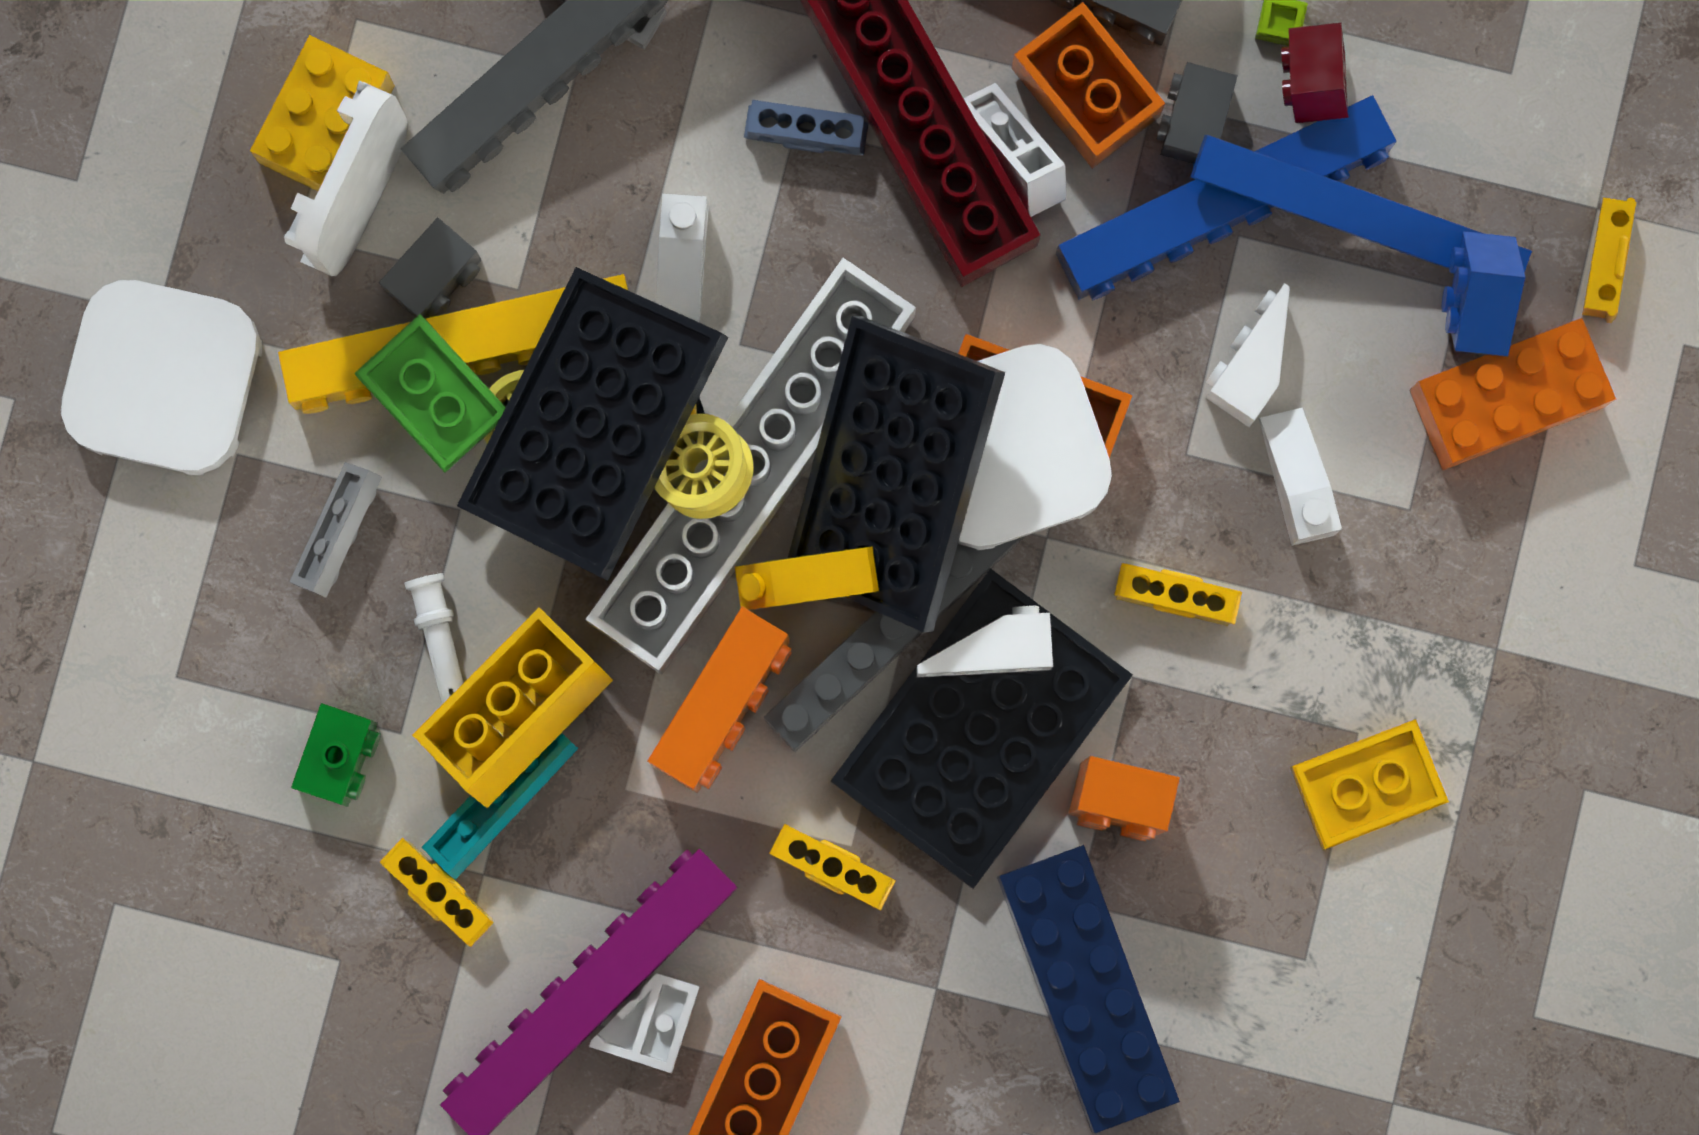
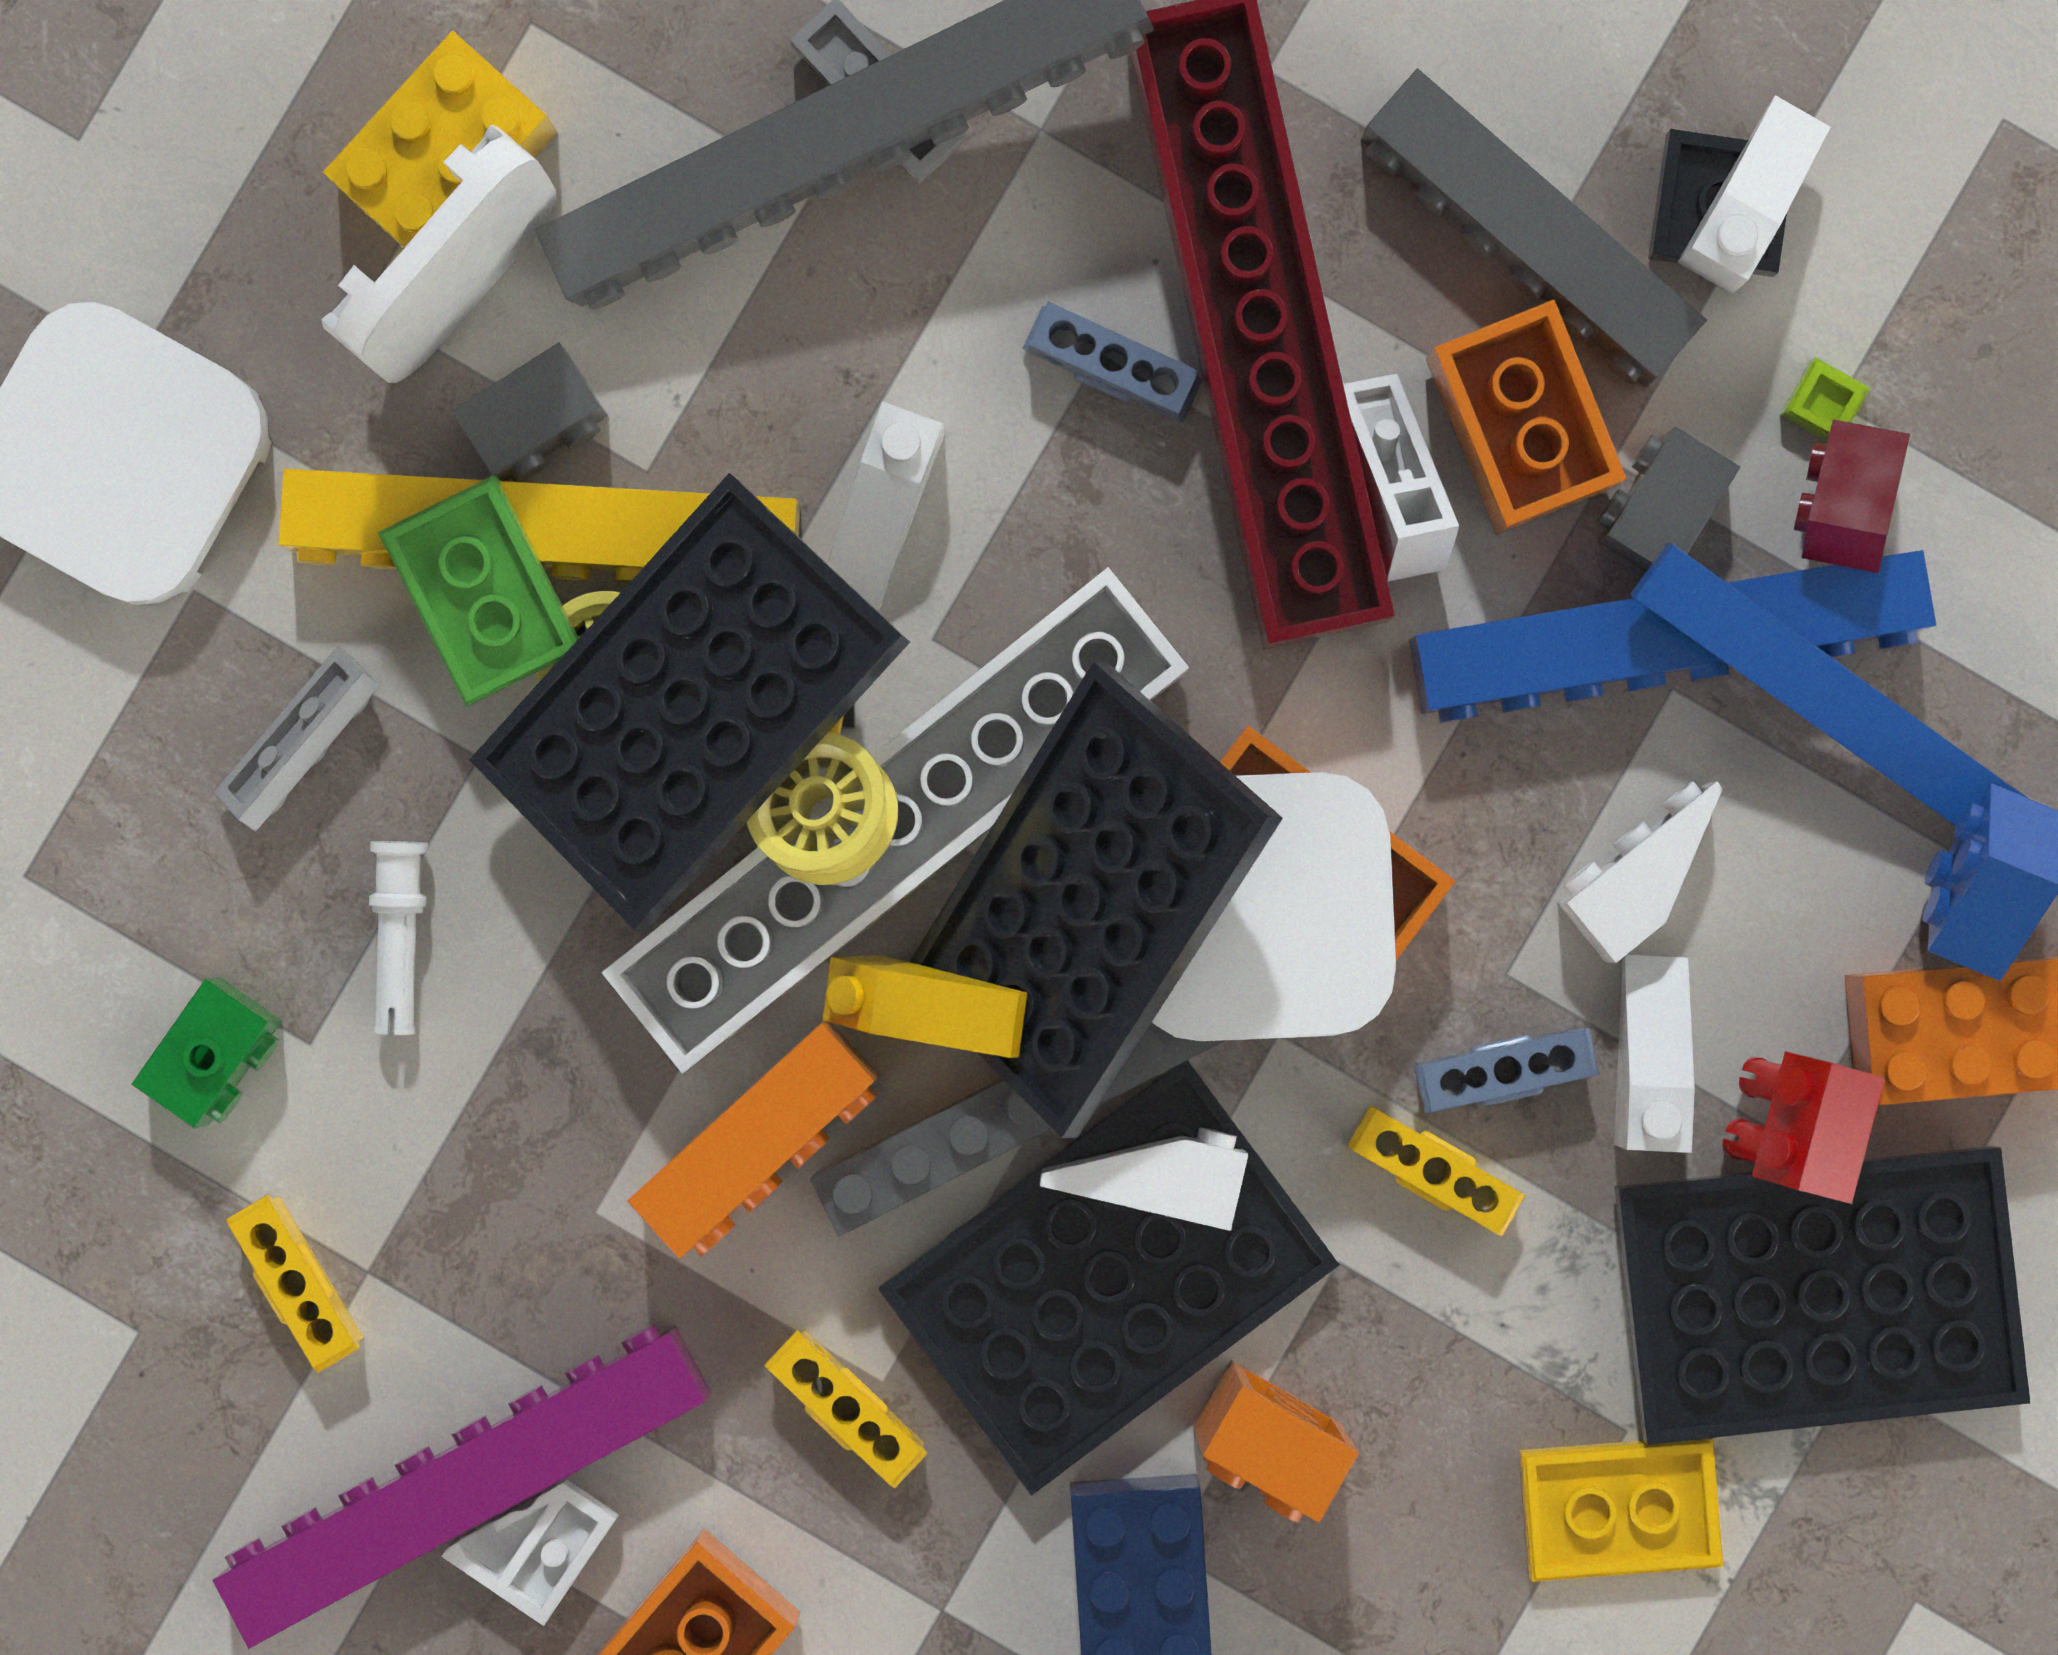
camera: 20 degrees right, 5 degrees up
(475, 826) = (417, 1178): teal plate -> none
(512, 708) = (466, 1063): yellow brick -> none
(1206, 499) = (1523, 1084): none -> sand blue piece
(1416, 488) = (1813, 1126): none -> red brick
(1458, 602) = (1819, 1310): none -> black plate

